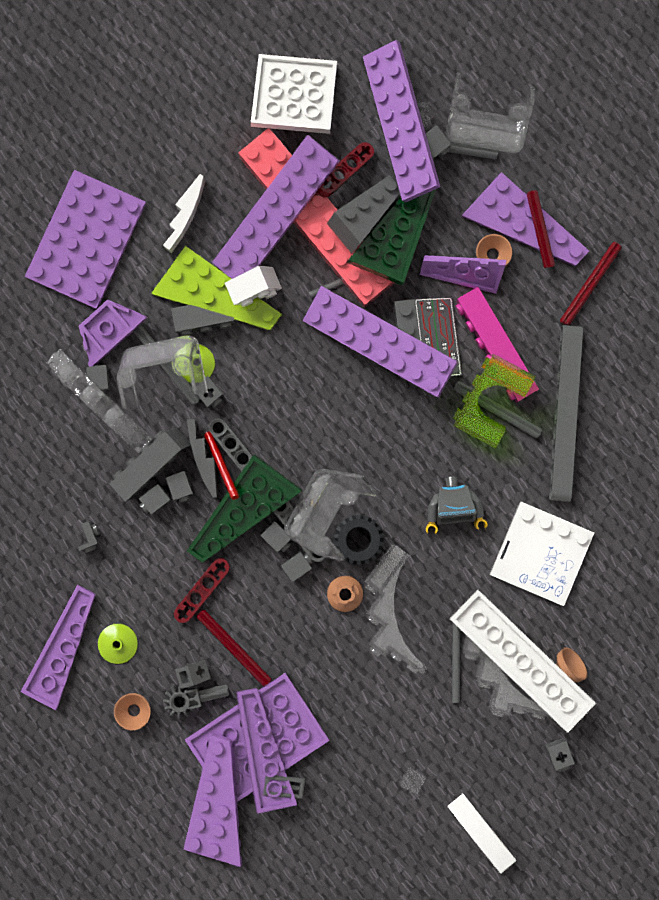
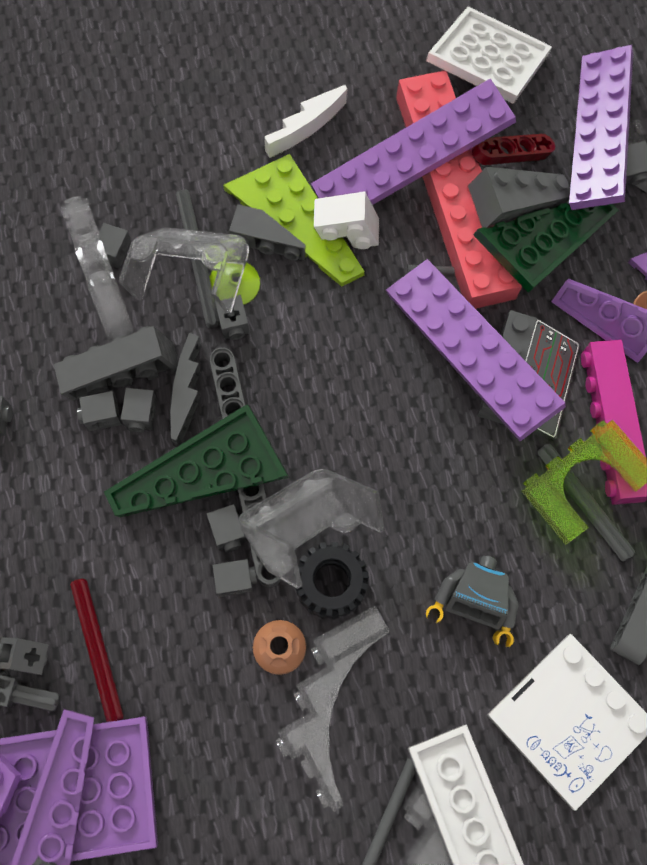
camera: 20 degrees right, 15 degrees down
(85, 239) = (181, 104): medium lavender plate -> none
(107, 329) = (153, 198): medium lavender wing -> none
(199, 588) = (97, 555): dark red beam -> none
(221, 466) = (202, 406): red bar -> none

